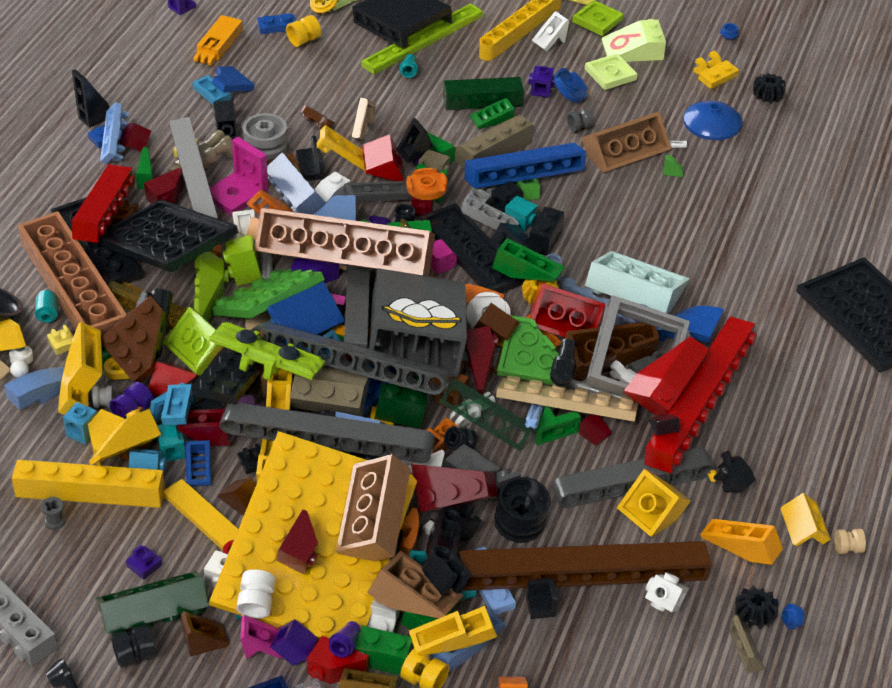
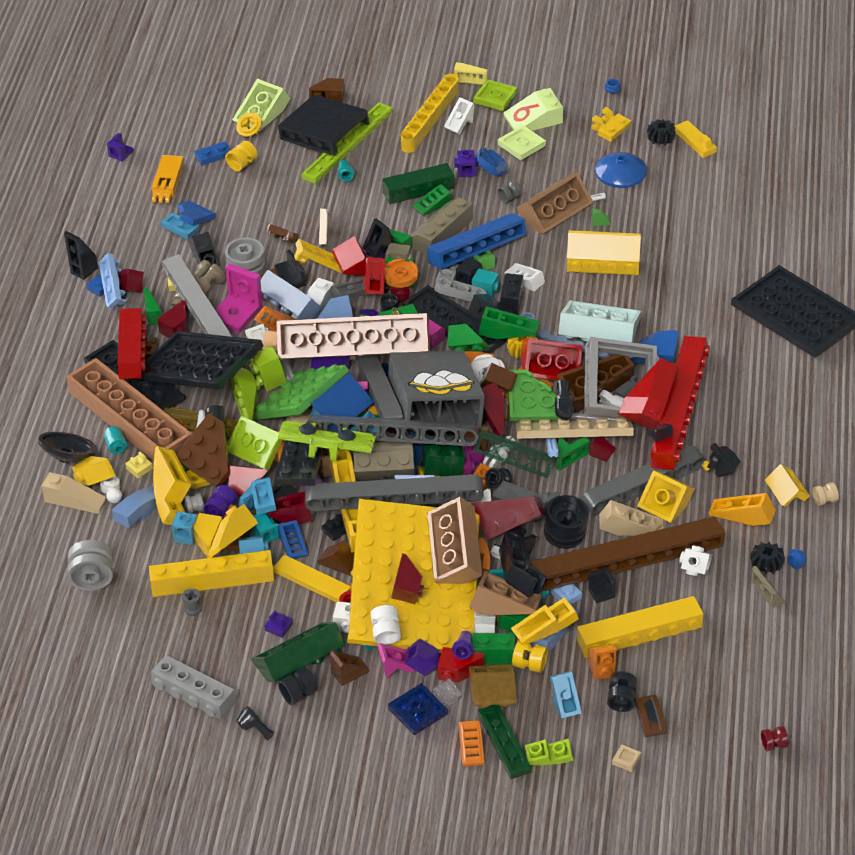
camera: 10 degrees left, 0 degrees up
(396, 181) = (374, 276): none -> red slope
(435, 411) = (471, 459): none -> magenta slope
(474, 270) = (464, 338): none -> green slope
(574, 217) = (532, 277): none -> white slope
(575, 661) = (642, 625): none -> yellow brick
(598, 524) = (627, 521): none -> tan slope
(664, 204) = (603, 252): none -> slope
(806, 102) = (695, 139): none -> yellow hinge

